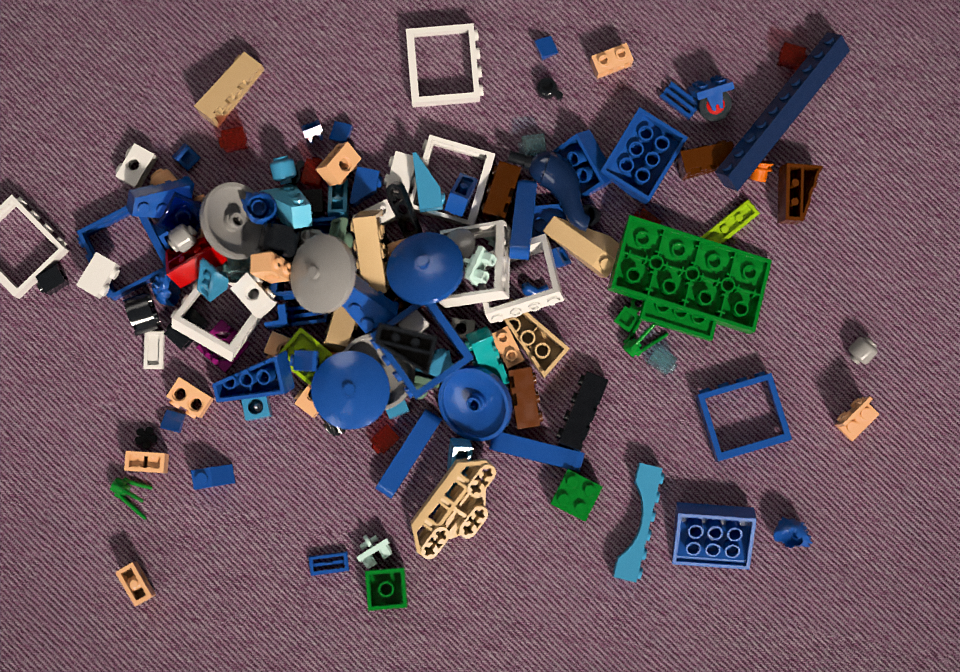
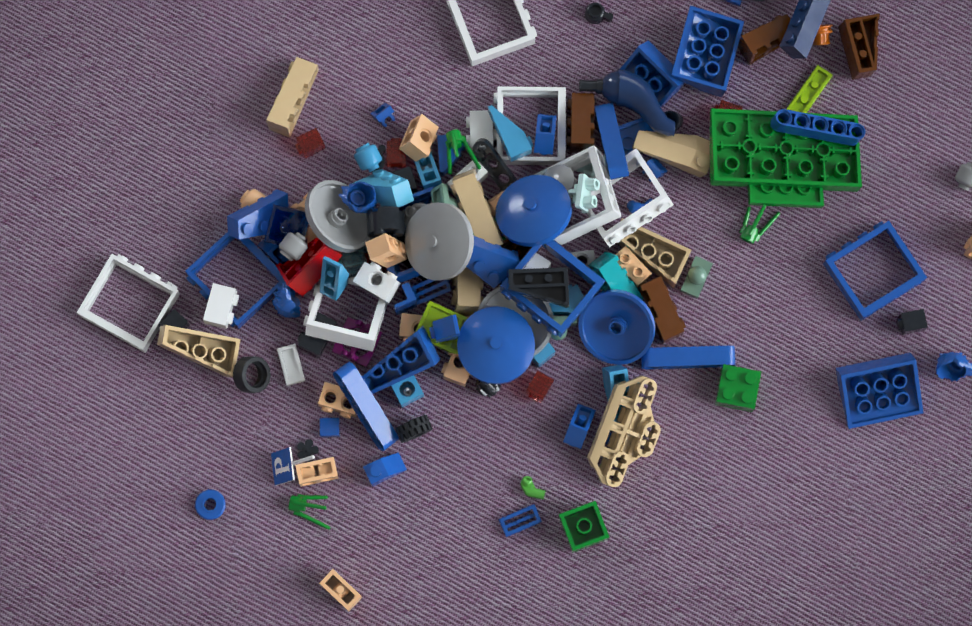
camera: 15 degrees left, 5 degrees down
(28, 460) = (200, 504): none -> blue piece
(72, 312) = (203, 348): none -> tan wedge
(116, 447) = (283, 465): none -> blue piece
(120, 359) = (239, 374): none -> black tyre
(136, 177) = (225, 205): white brick -> none
(141, 314) = (271, 332): black brick -> none
(186, 157) = (267, 172): blue slope -> none
(210, 412) = (365, 406): none -> beam
(251, 446) = (414, 428): none -> black tyre
(341, 132) = (410, 108): blue slope -> none
(347, 535) = (530, 490): none -> bright green arm
(367, 557) = (568, 490): light aqua hips -> none
(371, 177) = (455, 141): none -> green plant
(408, 453) = (566, 394): blue beam -> none
(412, 488) = (579, 426): none -> blue slope
(532, 144) = (597, 69): clear light blue brick -> none
(568, 374) = (696, 277): none -> sand green tile
(582, 411) = (720, 307): black wedge -> none
(628, 316) = (737, 206): green plate -> none
(628, 562) = (801, 357): dark azure arch -> none
(662, 361) = (782, 239): clear light blue brick -> none
(737, 261) = (809, 130): none -> blue beam
(764, 478) = (912, 322): none -> black brick

